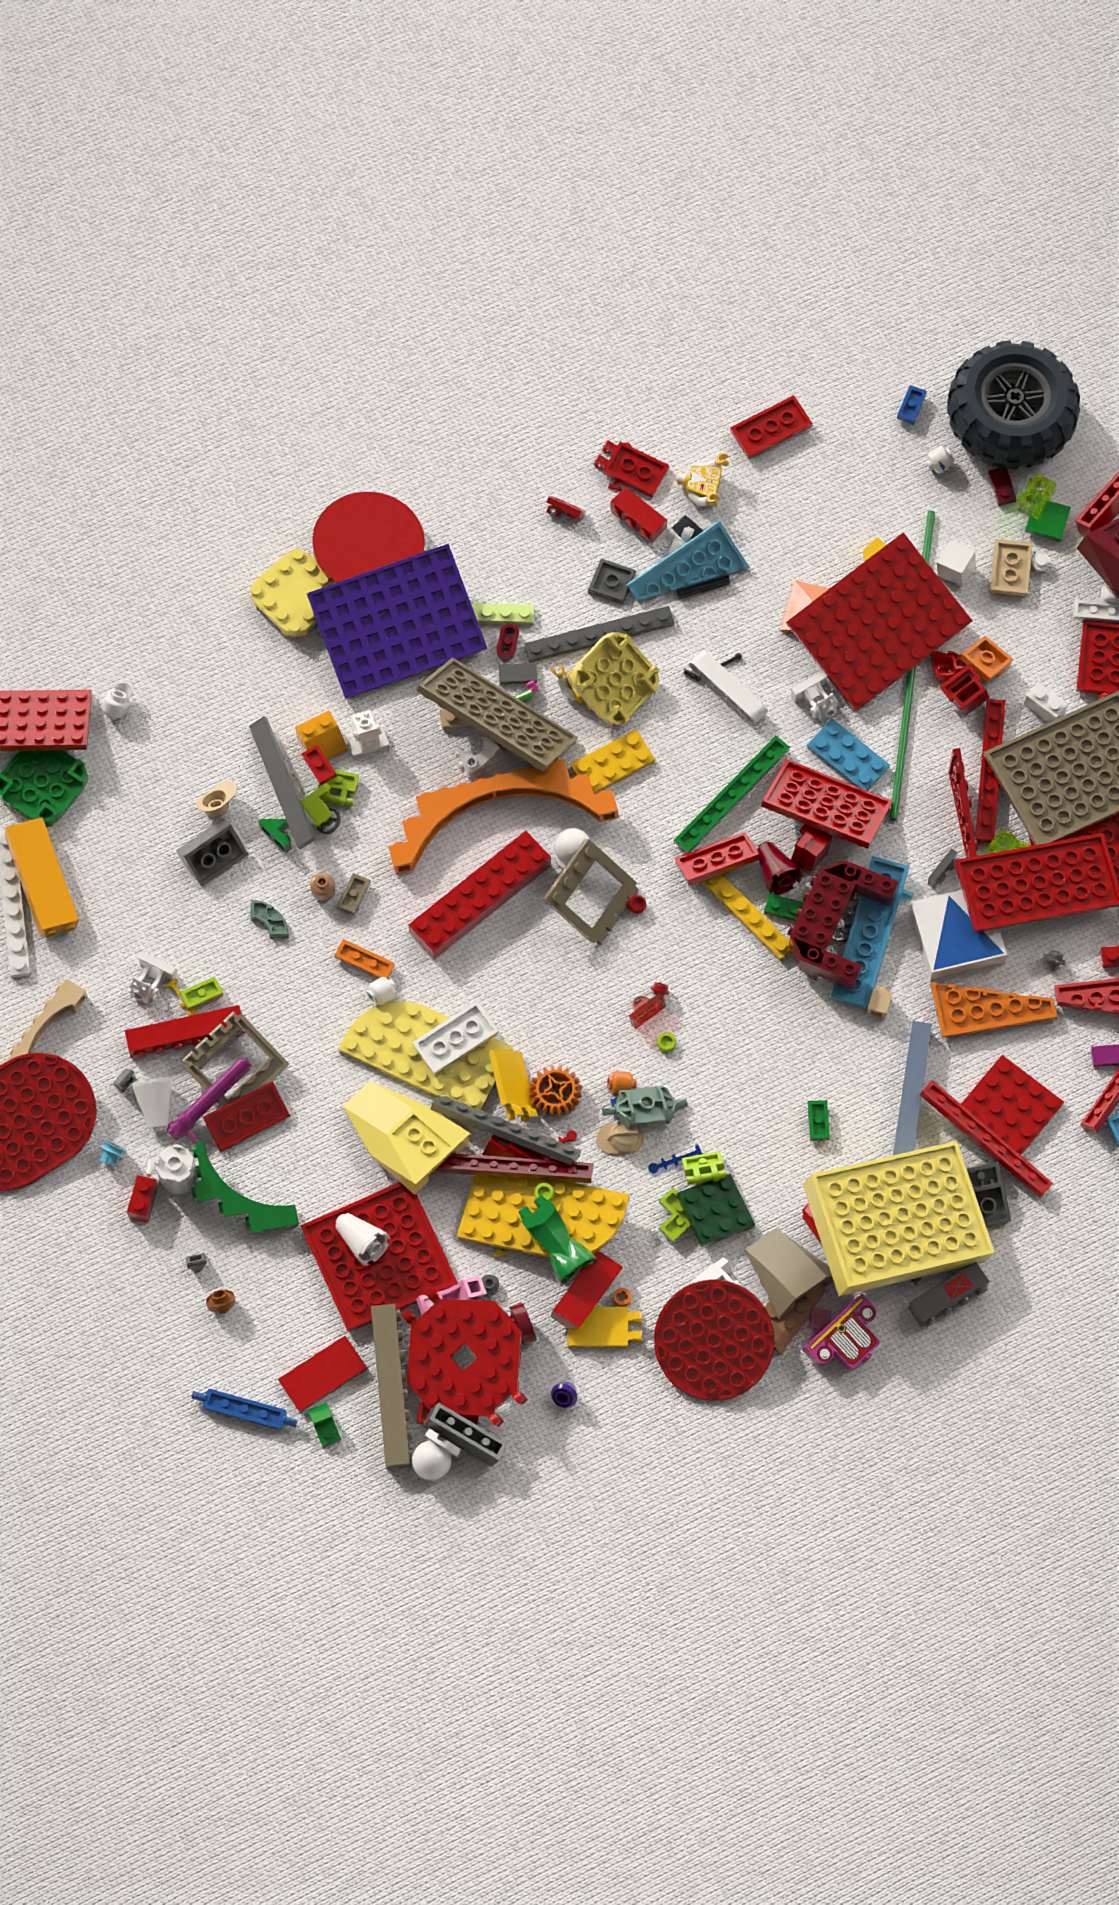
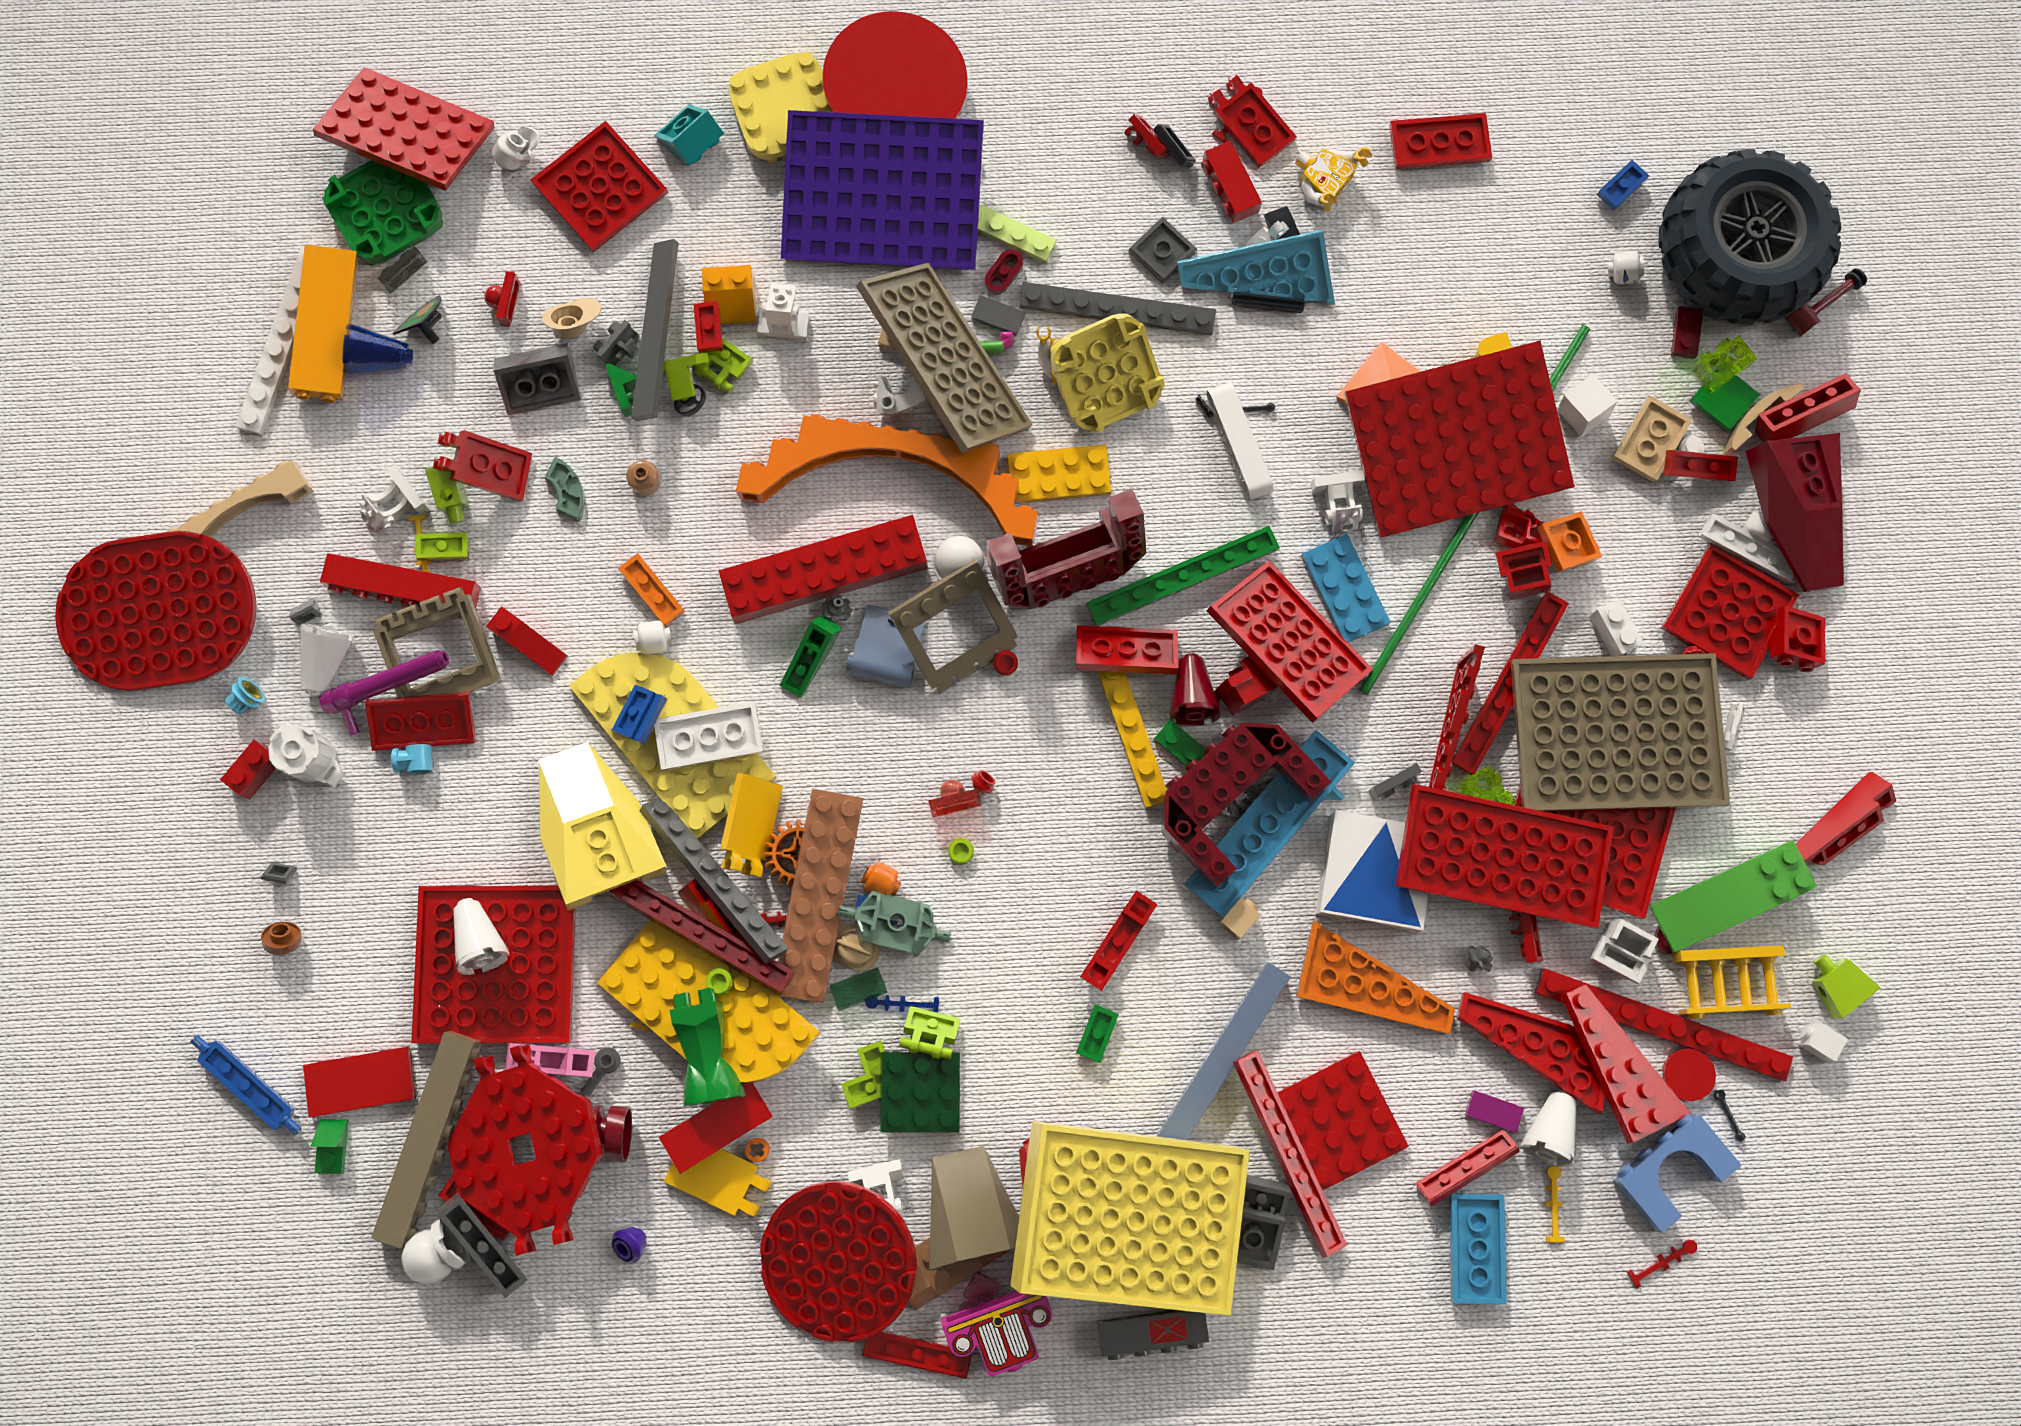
camera: 20 degrees right, 10 degrees up
(79, 813) = (402, 269): none -> clear smoke plate
(87, 881) = (373, 351): none -> clear blue cone
(110, 844) = (424, 319): none -> black shield
(159, 808) = (504, 298): none -> red tile
(183, 947) = (441, 489): none -> lime torso
(190, 702) = (599, 186): none -> red plate
(208, 922) = (485, 464): none -> red tile
(237, 639) = (690, 134): none -> teal slope
(254, 1143) = (415, 759): none -> medium azure piece
(259, 806) = (619, 343): none -> dark grey hips
(261, 1216) = (351, 824): green arch -> none
(293, 1031) = (526, 641): none -> red slope
(353, 894) = (677, 502): dark tan plate -> none
(400, 1043) = (639, 714): none -> blue plate
(498, 957) = (810, 655): none -> green slope
(501, 917) = (836, 608): none -> dark grey plant
(547, 931) = (881, 650): none -> sand blue door
(583, 1105) = (819, 891): none -> nougat plate
(586, 506) = (1174, 145): none -> black tile
(640, 1162) = (858, 989): none -> clear green tile
(653, 814) = (1071, 560): none -> dark red wedge
(796, 1381) = (916, 1354): none -> red tile
(804, 1052) = (1118, 940): none -> red slope
(1052, 571) = (1700, 465): none -> red plate
(1069, 538) = (1741, 433): none -> tan slope
(1078, 442) = (1806, 317): none -> dark red piece
(1085, 936) = (1531, 942): none -> red plate

